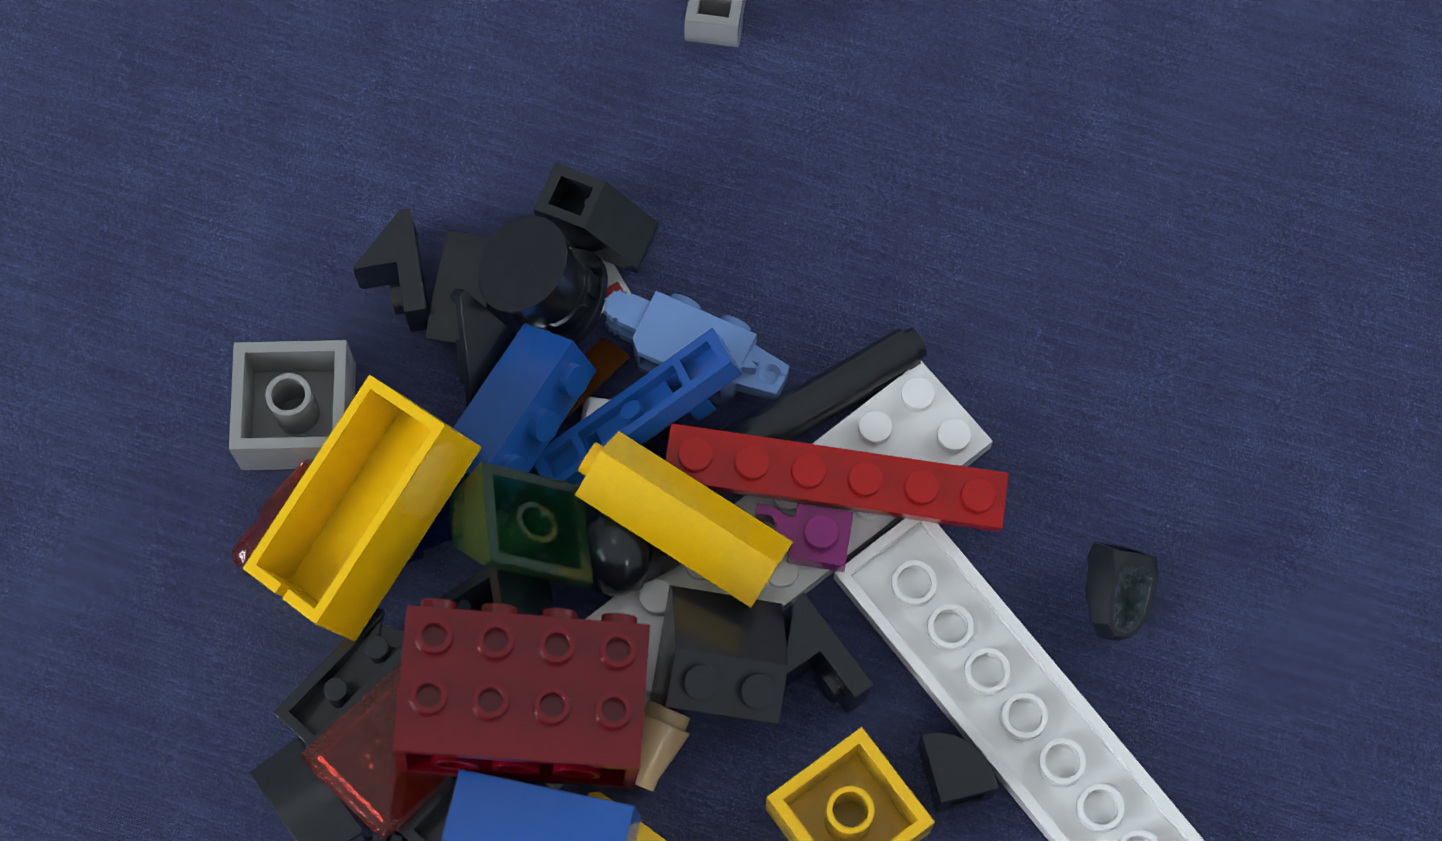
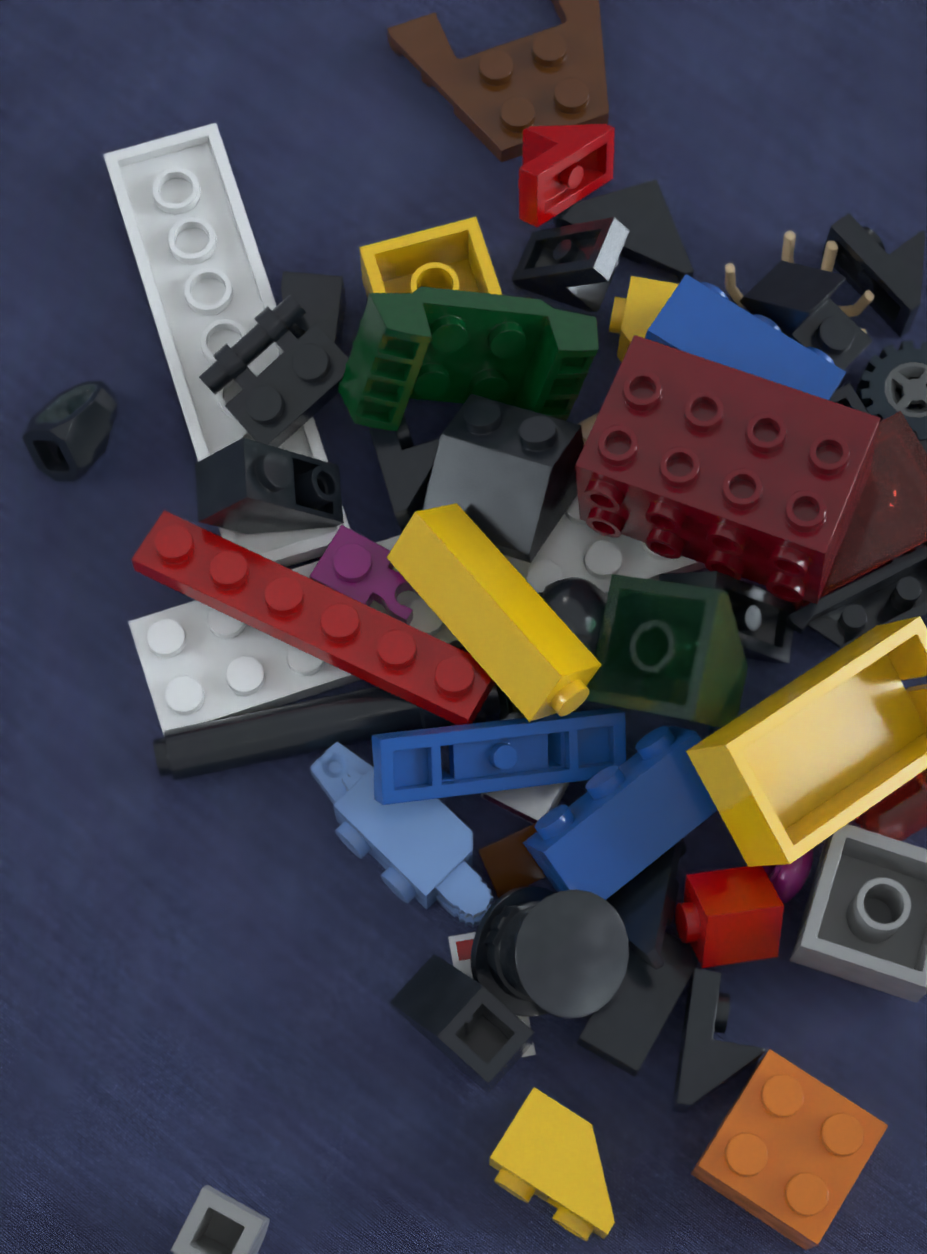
camera: 160 degrees left, 0 degrees up
(316, 214) = (789, 1150): none -> orange brick
(412, 360) = (730, 916): none -> red brick
(490, 151) = (557, 1159): none -> yellow slope
(718, 771) = (464, 344): none -> dark green plate
(918, 569) = (267, 490): none -> black slope
(940, 674) = (290, 387): none -> black plate

